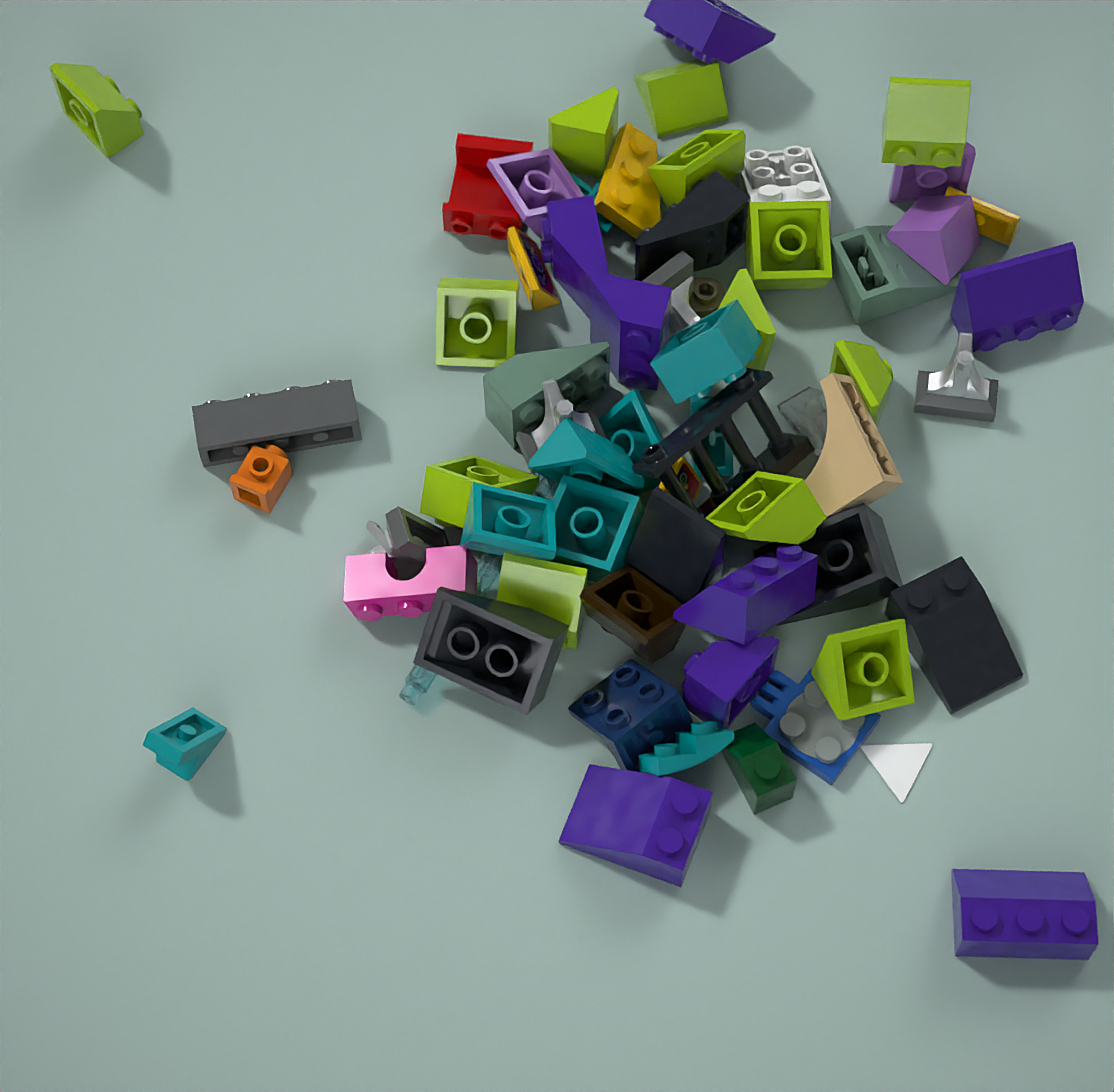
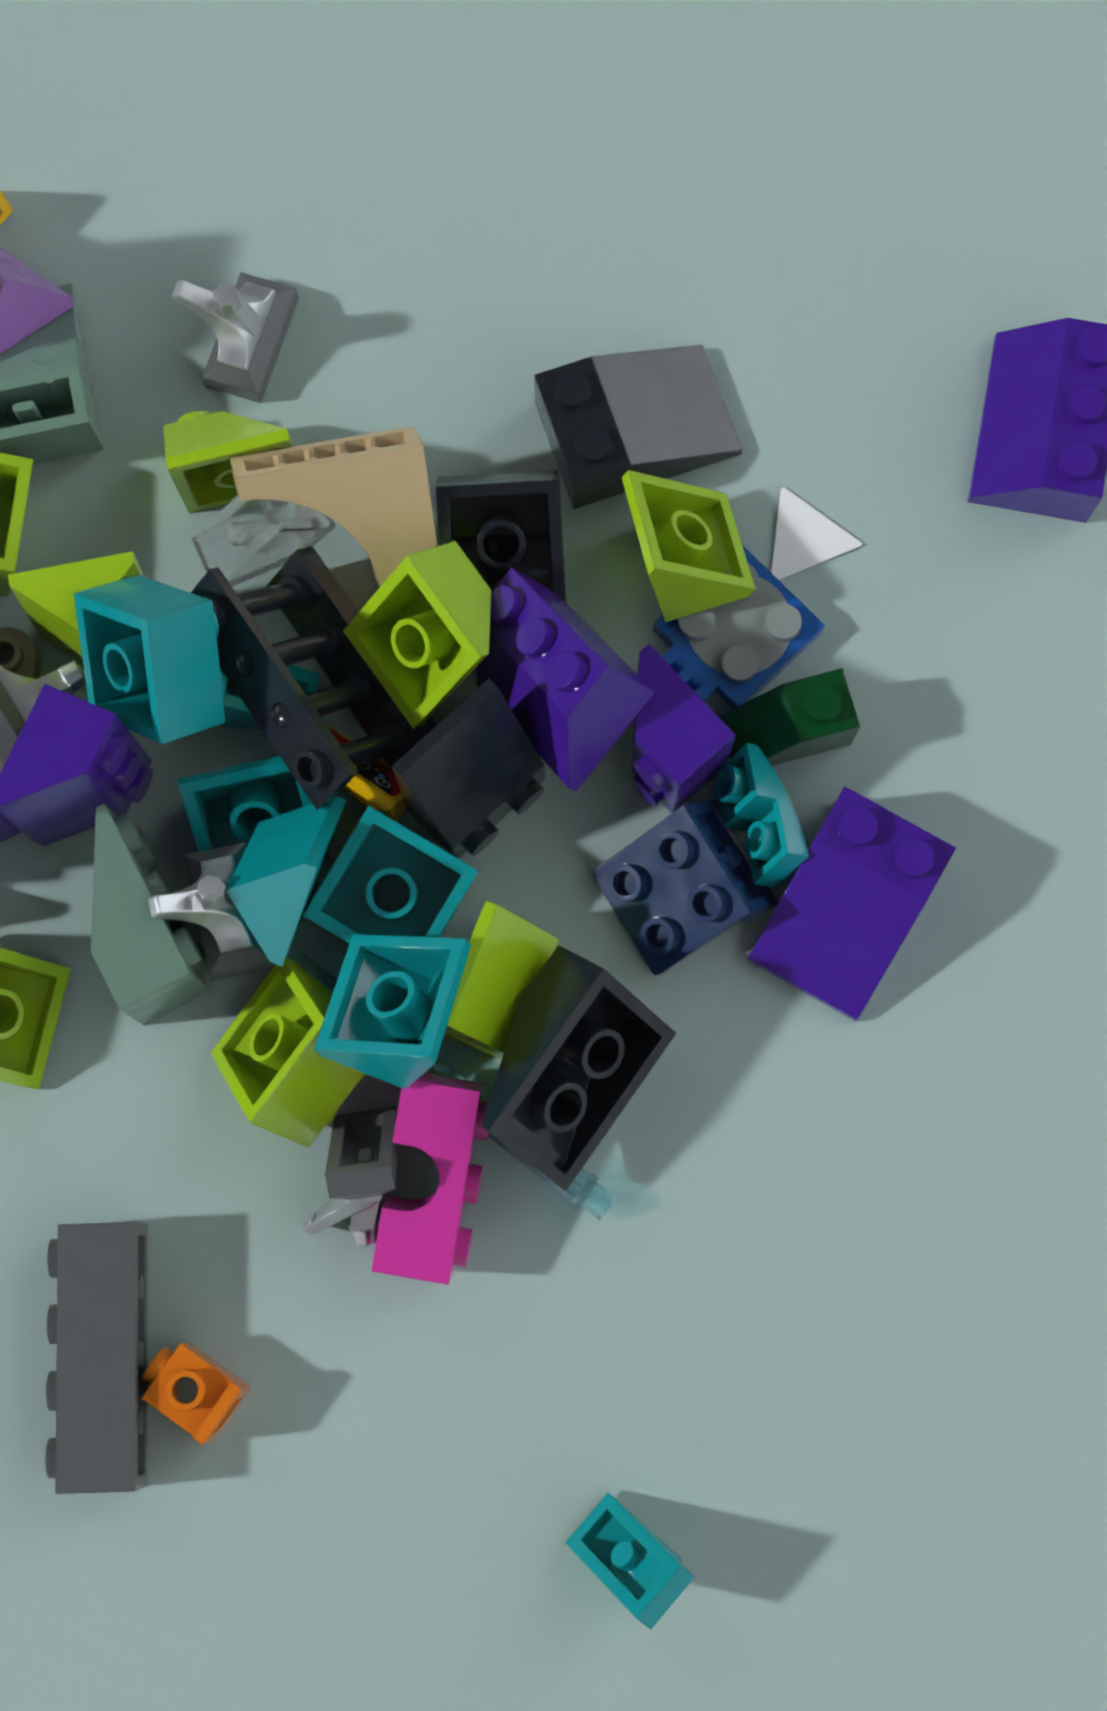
camera: 80 degrees left, 15 degrees up
(634, 612) = (541, 844): dark brown slope -> none
(1019, 297) = (124, 209): dark purple slope -> none

